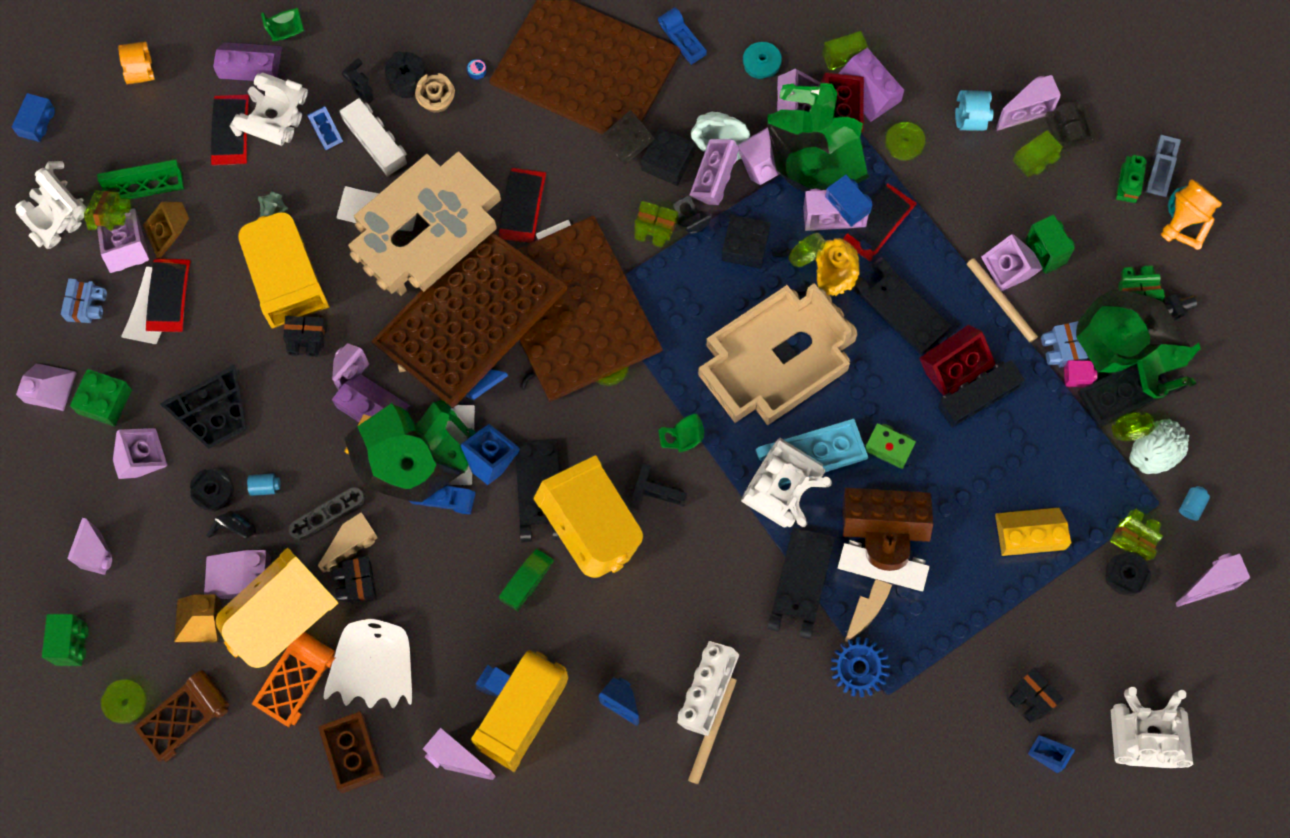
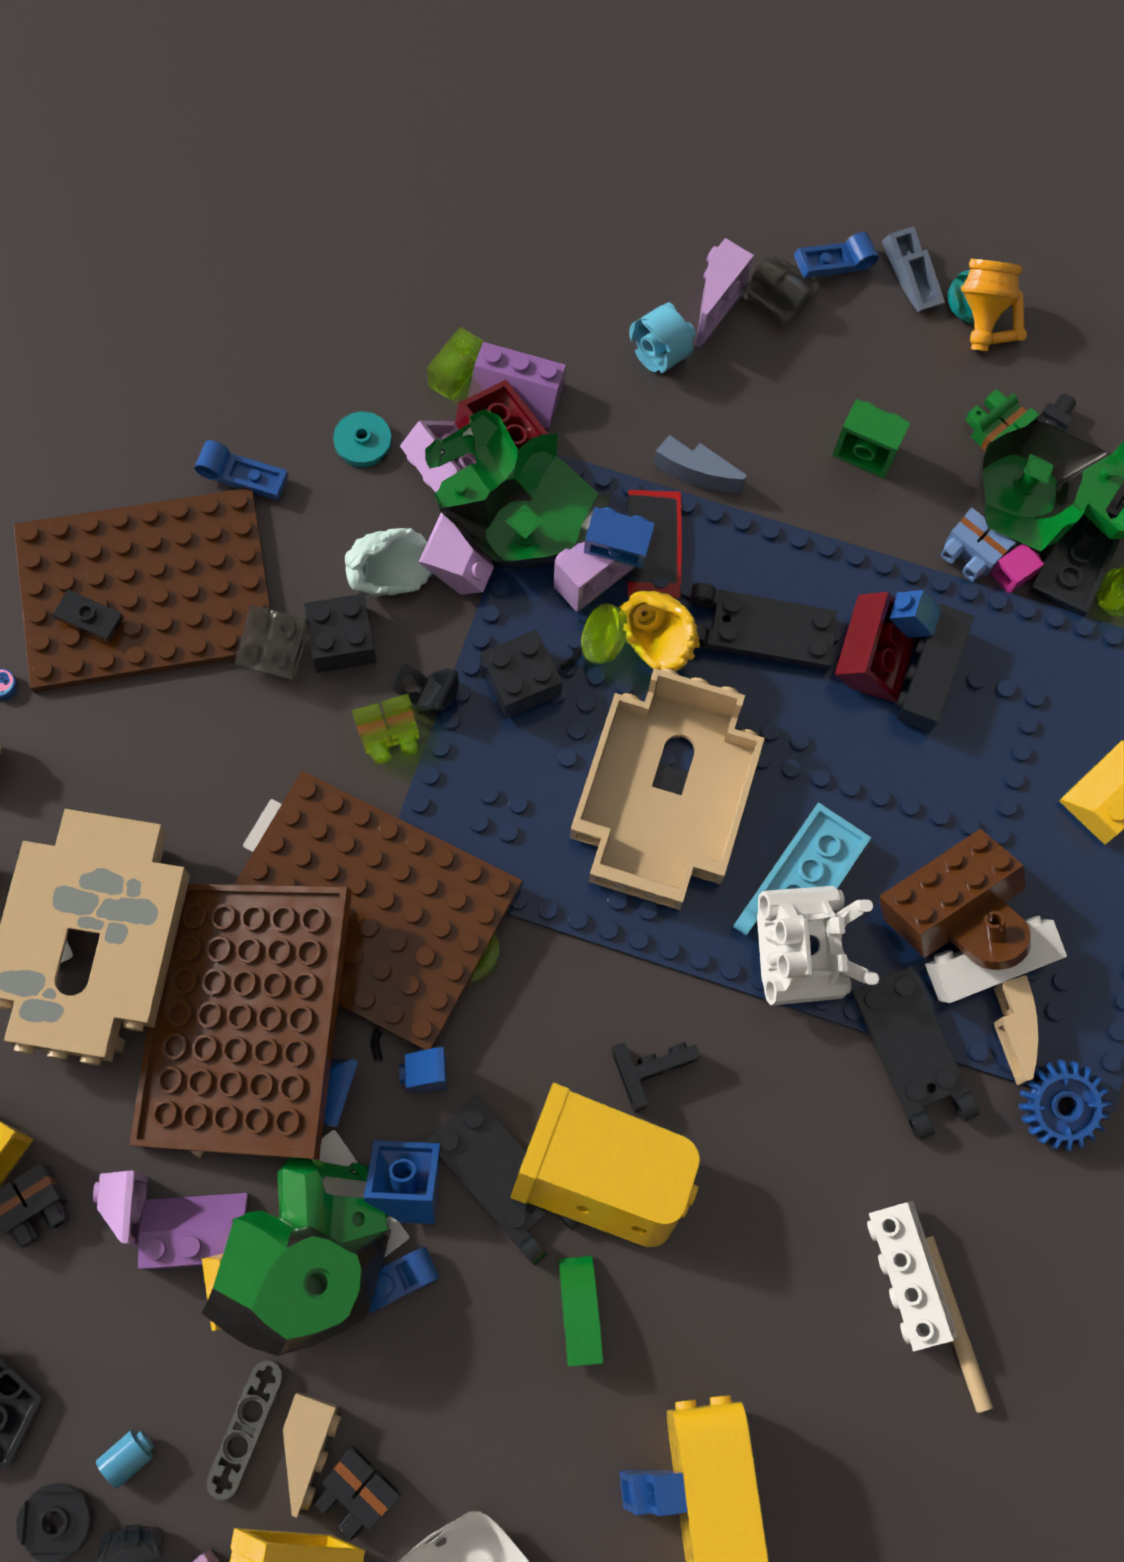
camera: 45 degrees left, 0 degrees up
(522, 205) = (196, 821): black sticker -> none
(540, 408) = (424, 1071): none -> blue slope
(544, 61) = (88, 616): none -> black plate
(620, 699) = (822, 1377): blue slope -> none
(687, 432) = (635, 966): green piece -> none
(714, 171) = (415, 612): lavender slope -> none
(890, 445) = (884, 804): bright green brick -> none
(905, 149) = (607, 438): clear neon green plate -> none
(937, 195) = (698, 467): none -> sand blue slope
(990, 355) = (915, 614): none -> blue brick
(1001, 299) = (864, 541): tan piece -> none
(1011, 262) = (841, 490): lavender slope -> none
(1037, 154) = (770, 344): clear neon green brick -> none
(1131, 179) = (894, 305): green hips -> none
(1134, 134) = (823, 260): none -> blue plate

